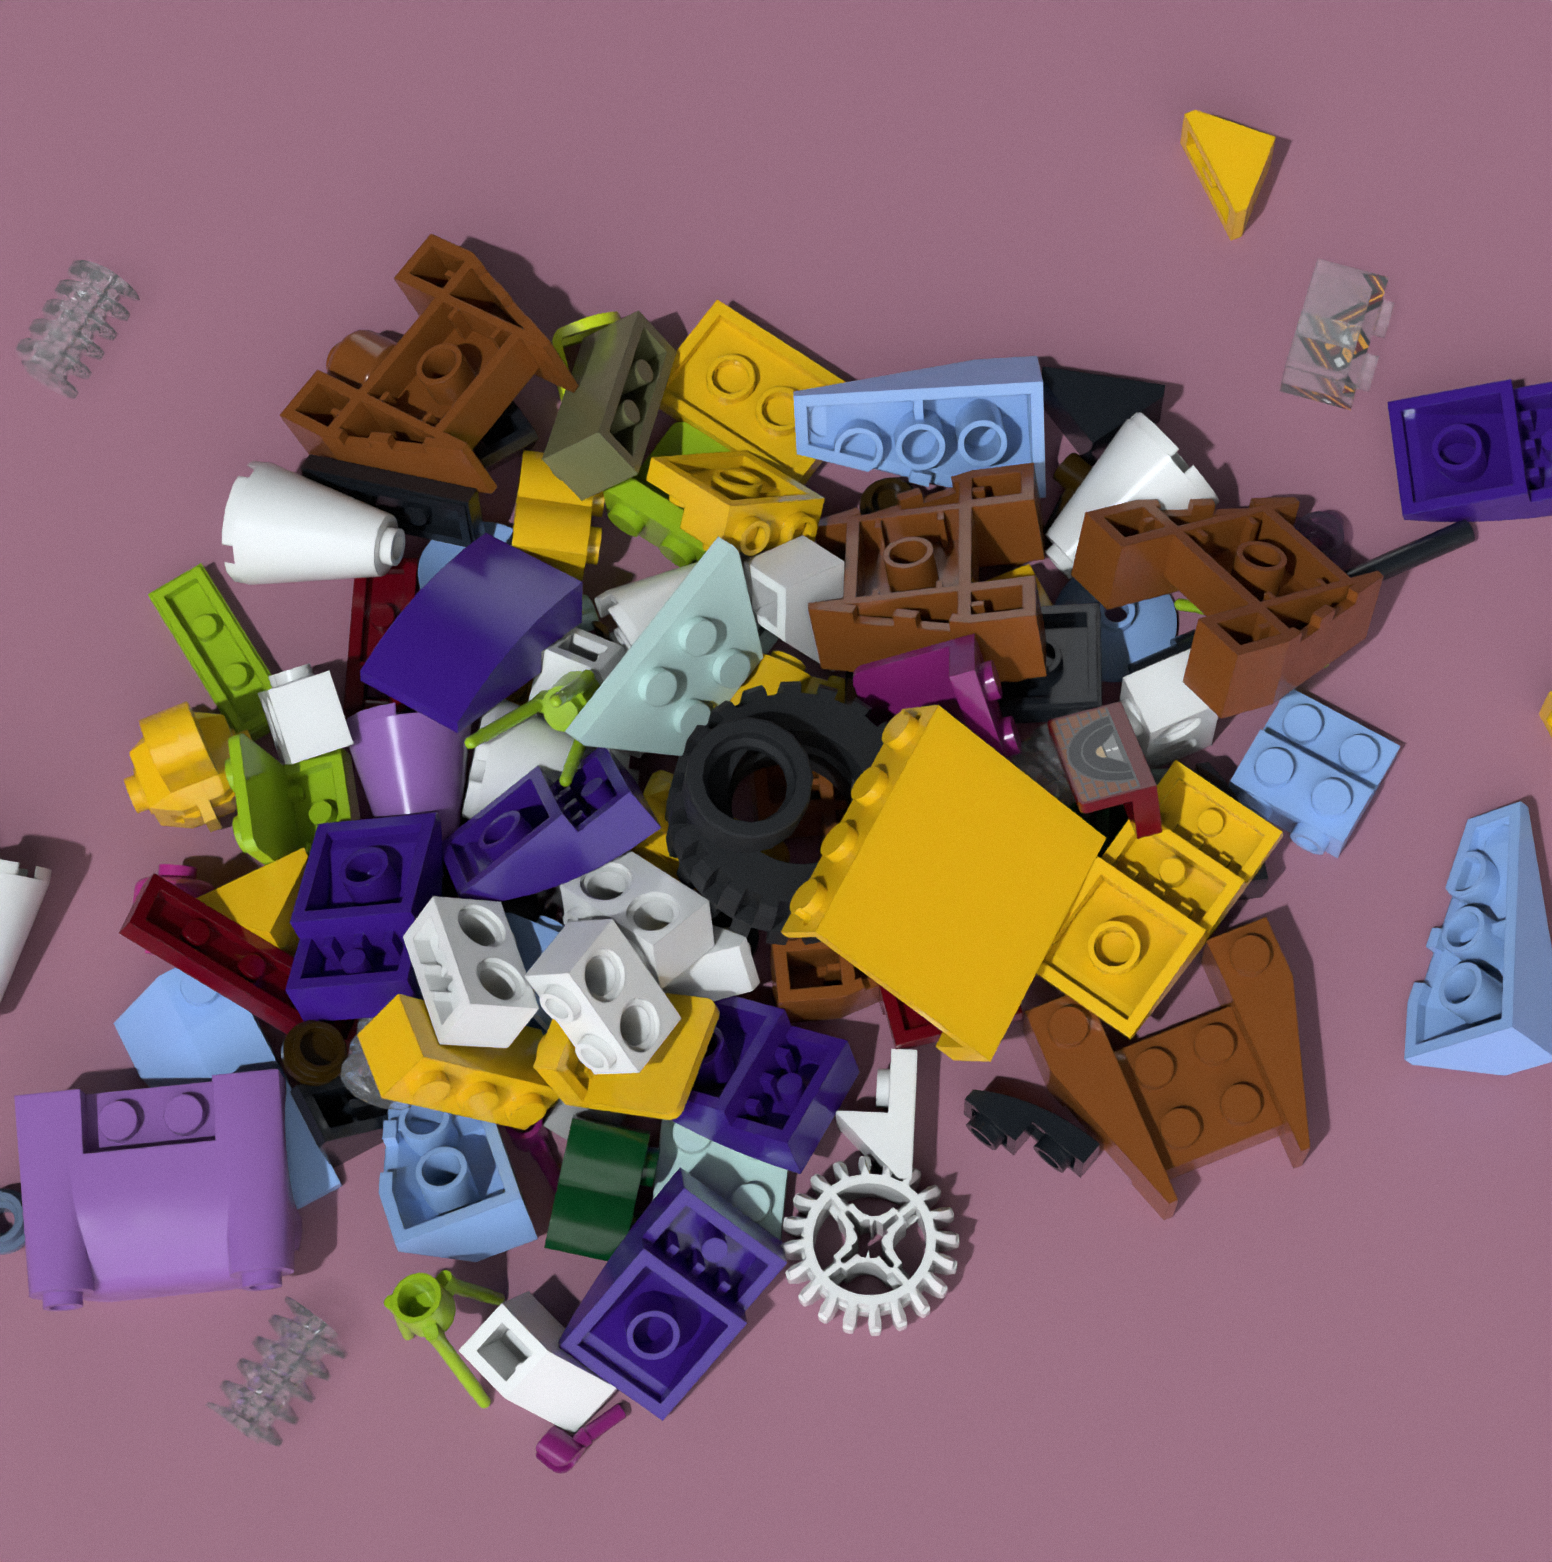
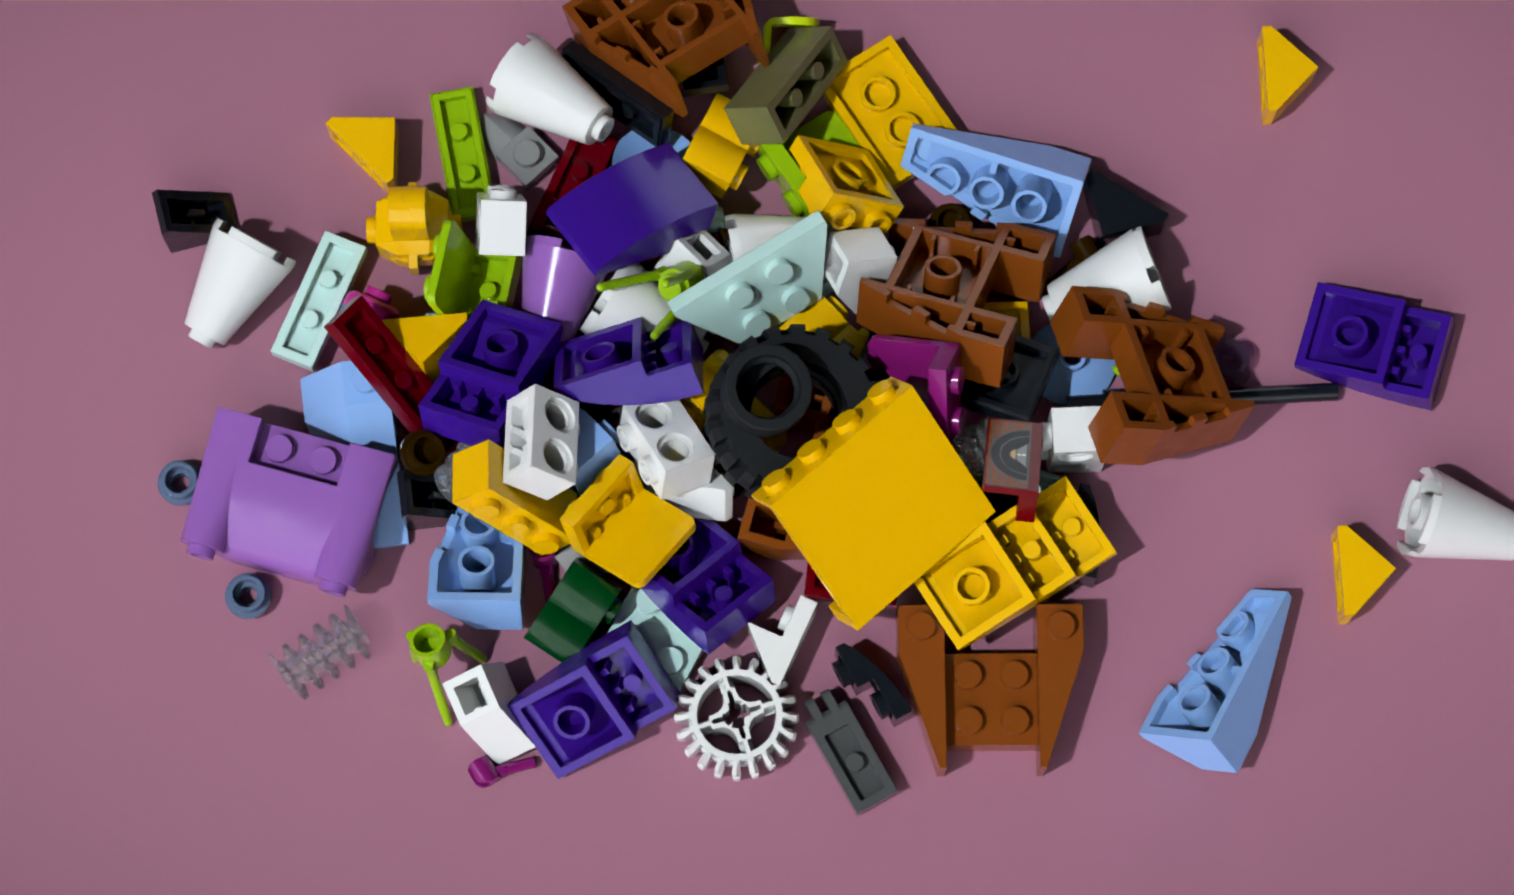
camera: 15 degrees right, 5 degrees up
(92, 685) = (371, 144): none -> yellow slope
(99, 899) = (318, 300): none -> light aqua plate
(132, 1329) = (238, 586): none -> sand blue plate
(291, 621) = (518, 149): none -> light grey plate
(602, 997) = (621, 491): white brick -> none
(1037, 1234) = (849, 754): none -> dark grey hinge
(1312, 772) = (1158, 517): light blue plate -> none
(1334, 335) = (1302, 221): clear brick -> none

